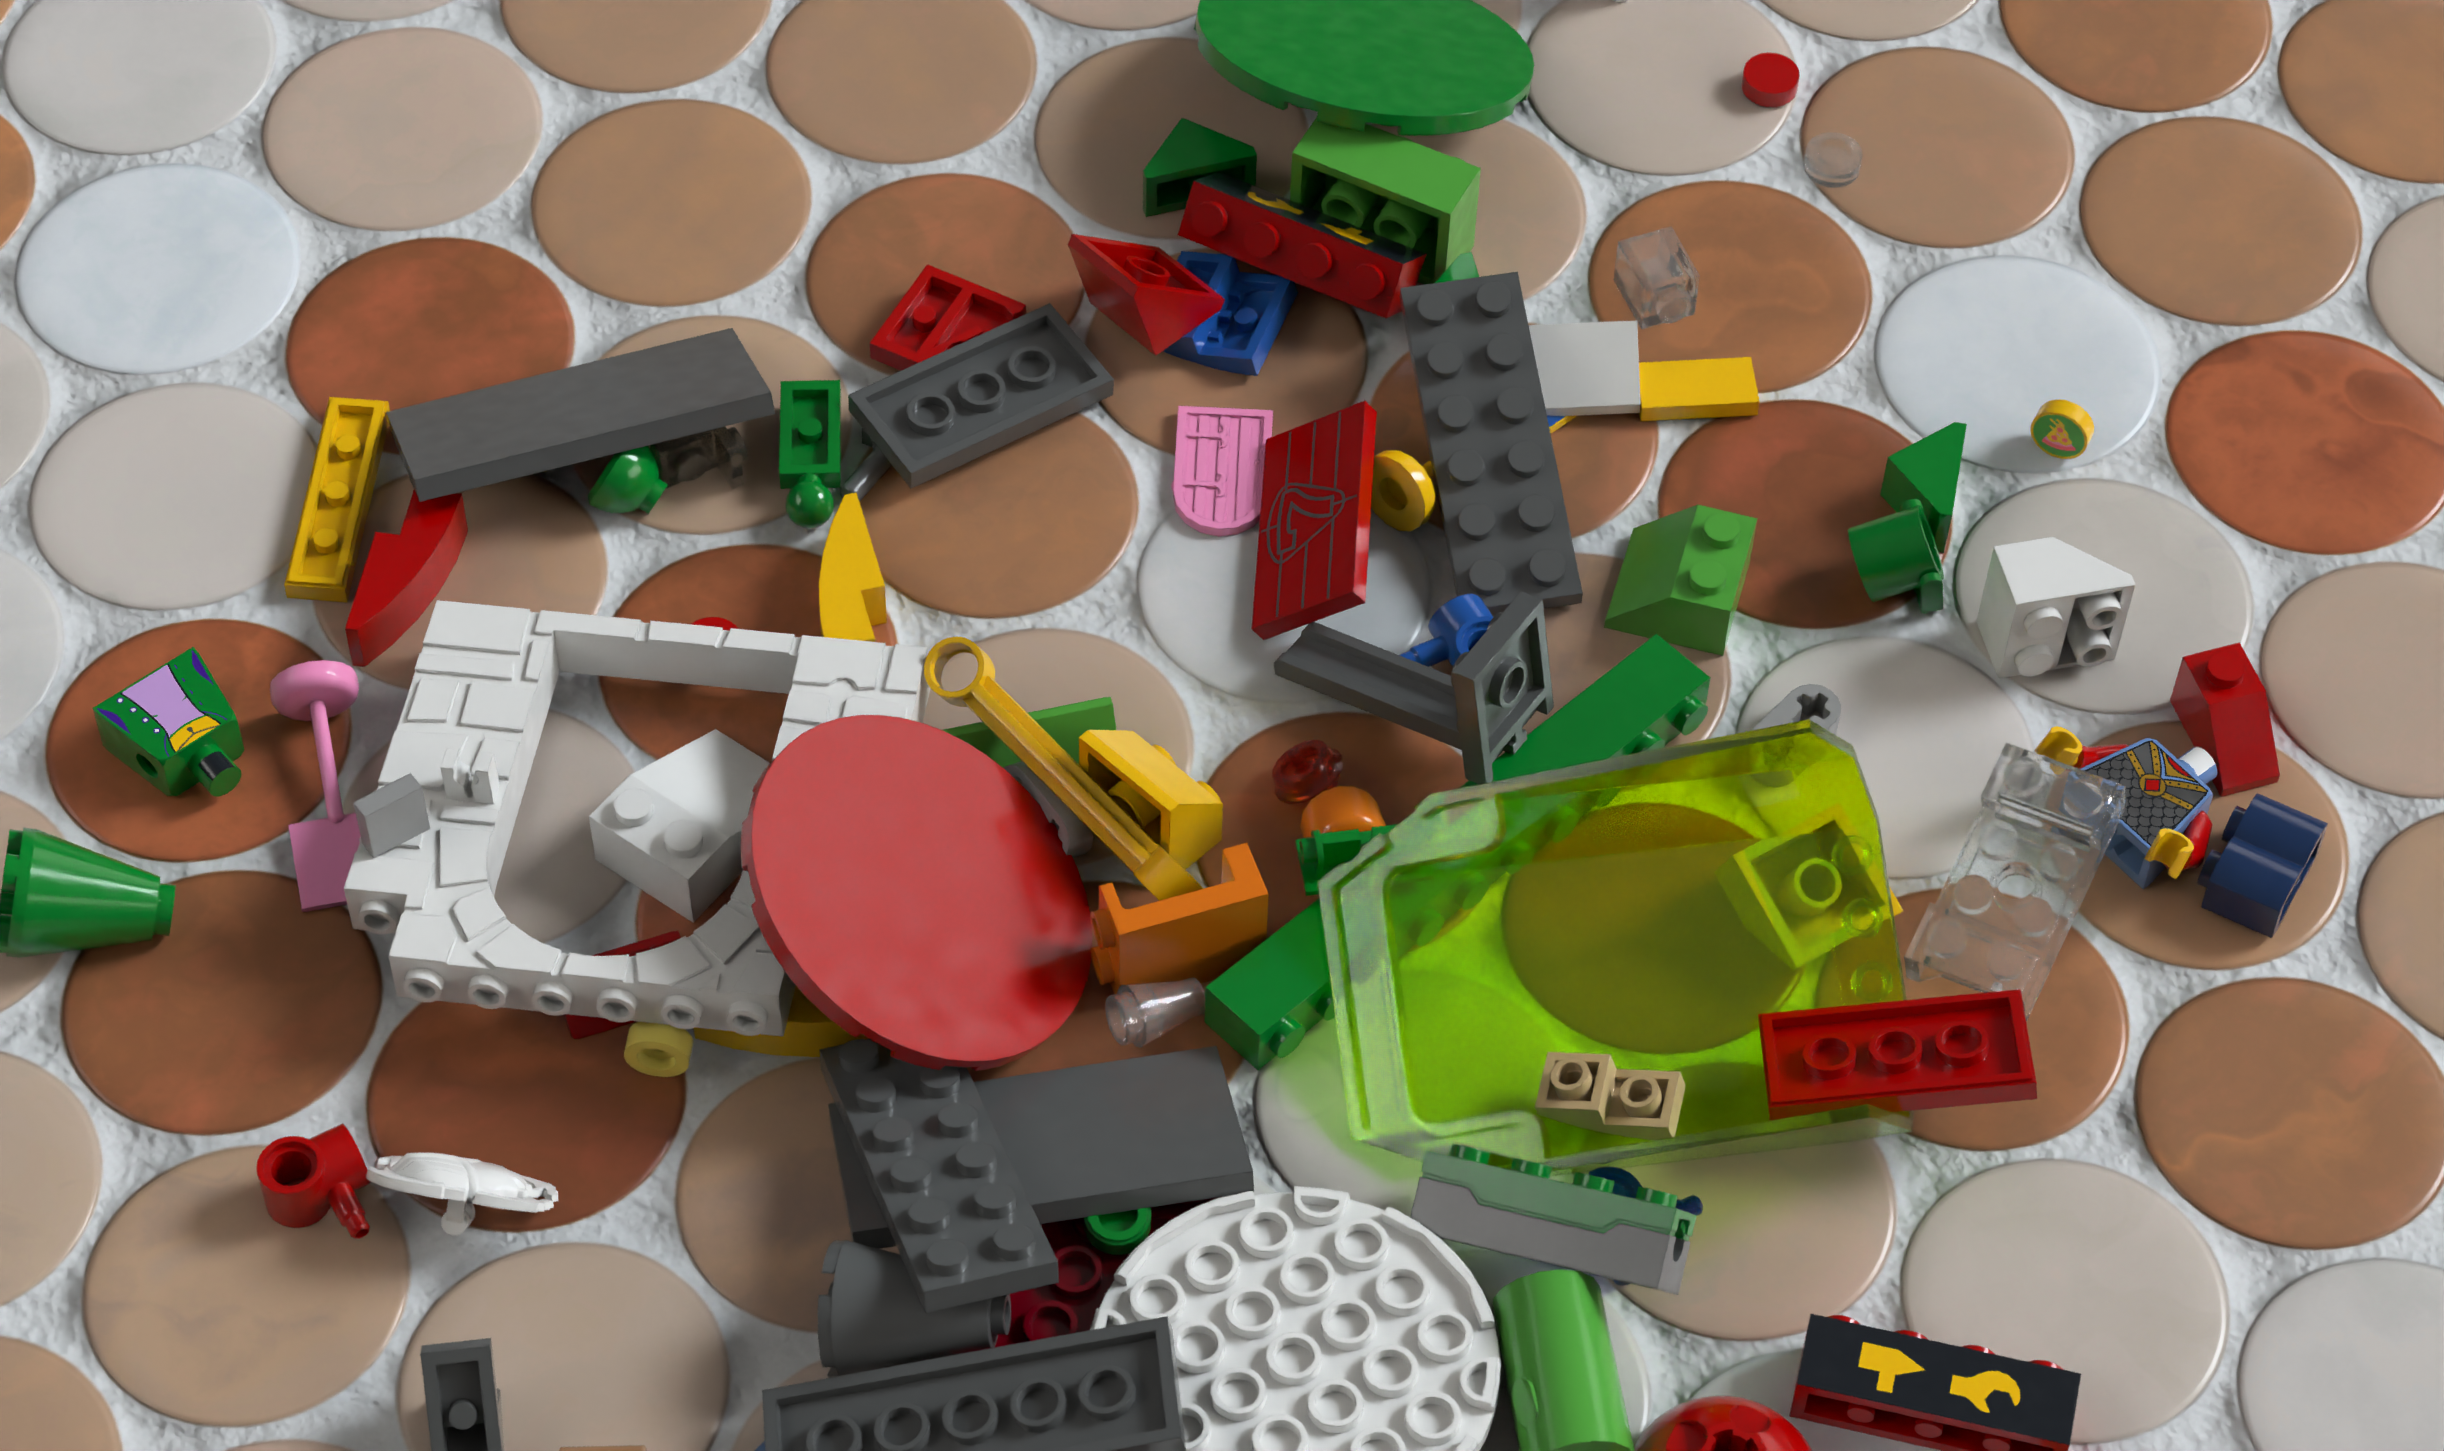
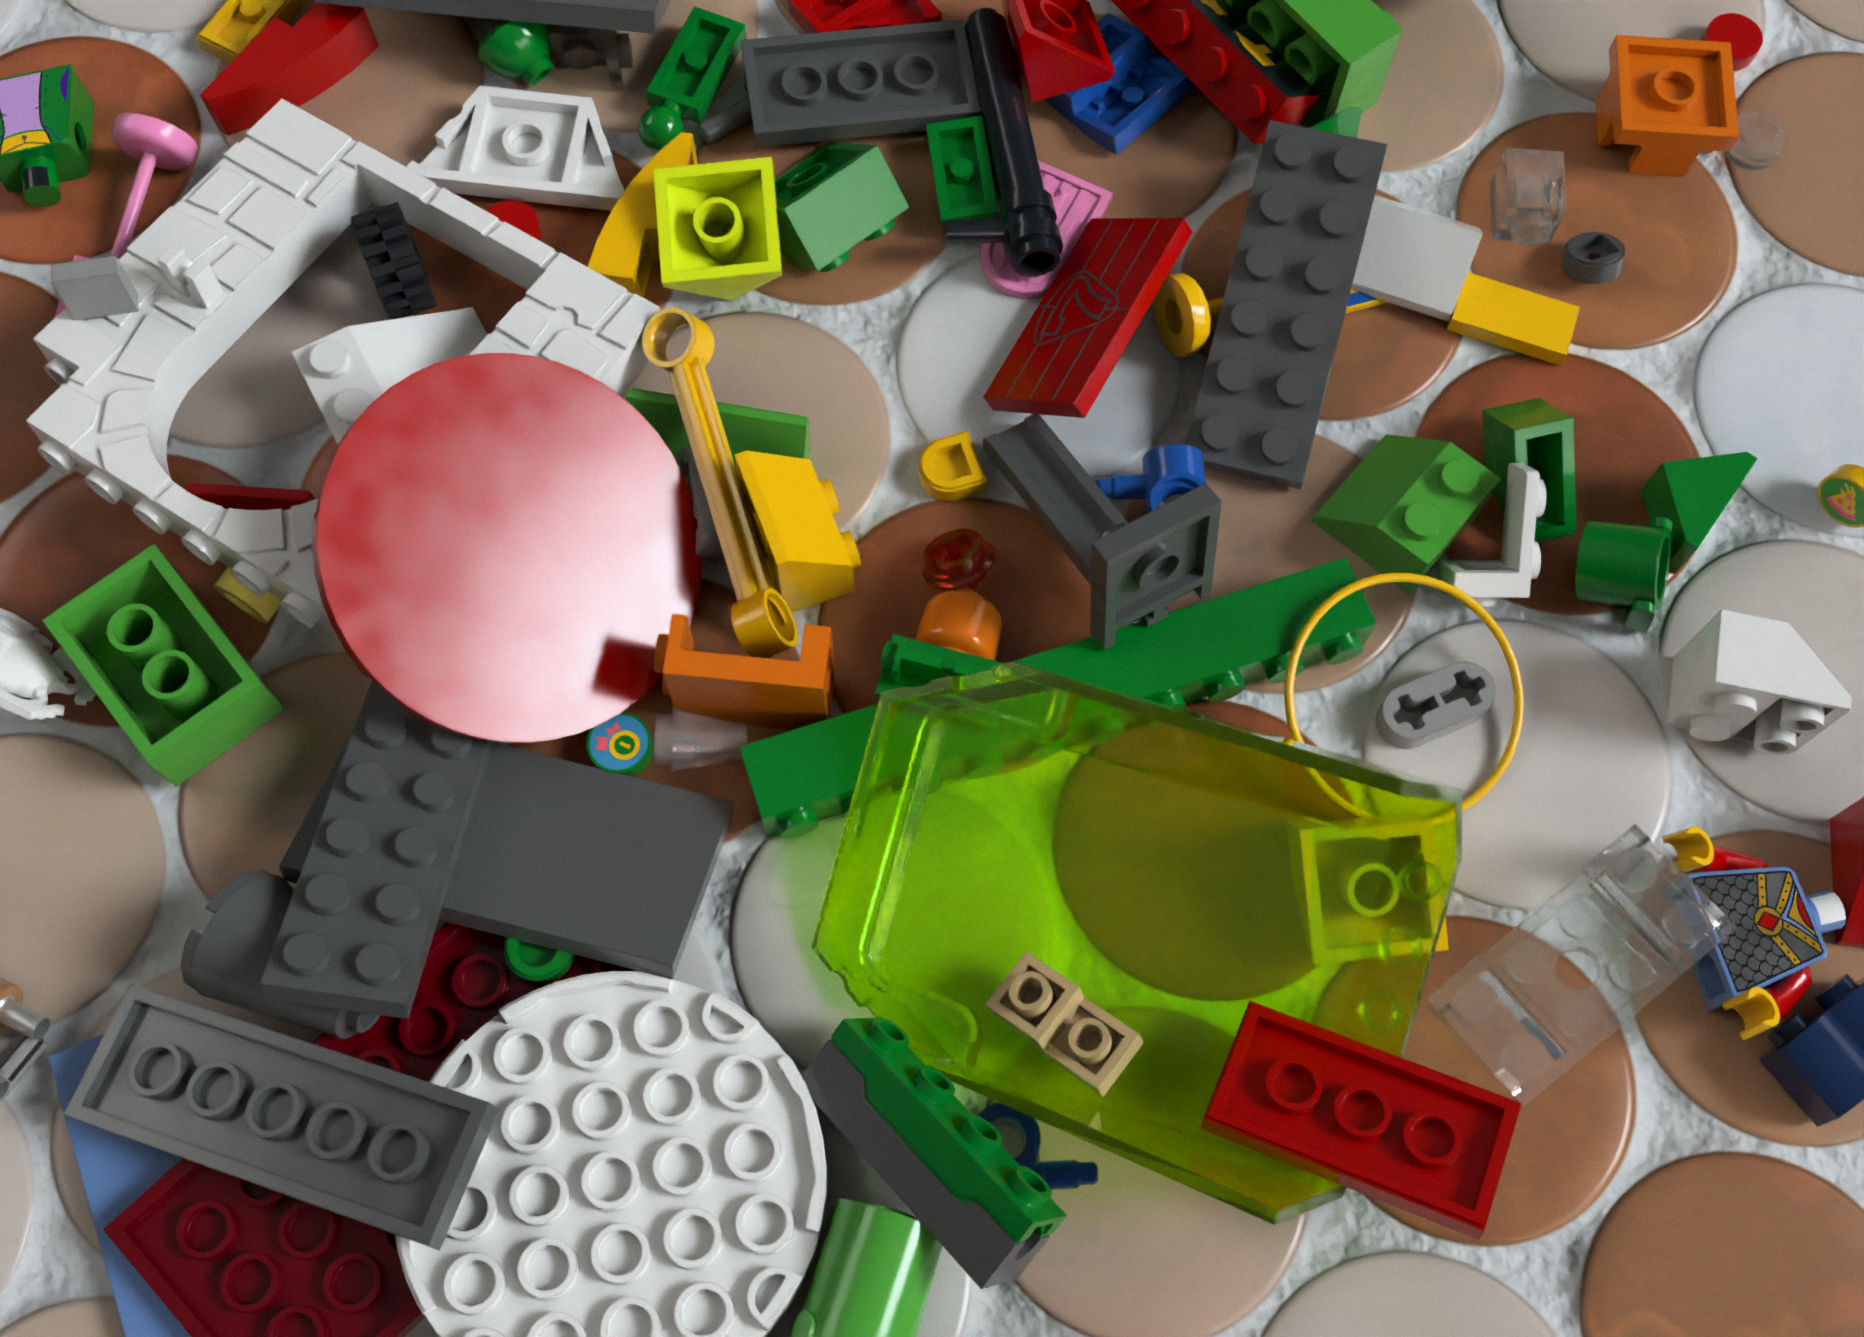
camera: 25 degrees right, 15 degrees up
(625, 1129) = (163, 666): none -> bright green brick
(631, 707) = (393, 261): none -> black tyre
(694, 567) = (525, 150): none -> white wing
(935, 563) = (718, 227): none -> neon yellow slope
(1011, 512) = (835, 203): none -> slope
(1083, 1040) = (621, 745): none -> tile
(1124, 442) = (962, 169): none -> green plate
(1205, 450) = (1025, 208): none -> black cylinder
(1256, 701) = (951, 468): none -> yellow tile
(1740, 150) = (1668, 102): none -> orange panel
(1741, 310) = (1593, 258): none -> dark grey tile
(1777, 490) = (1544, 440): none -> green slope
(1786, 634) = (1459, 595): none -> yellow piece
(1801, 576) = (1519, 552): none -> white bracket

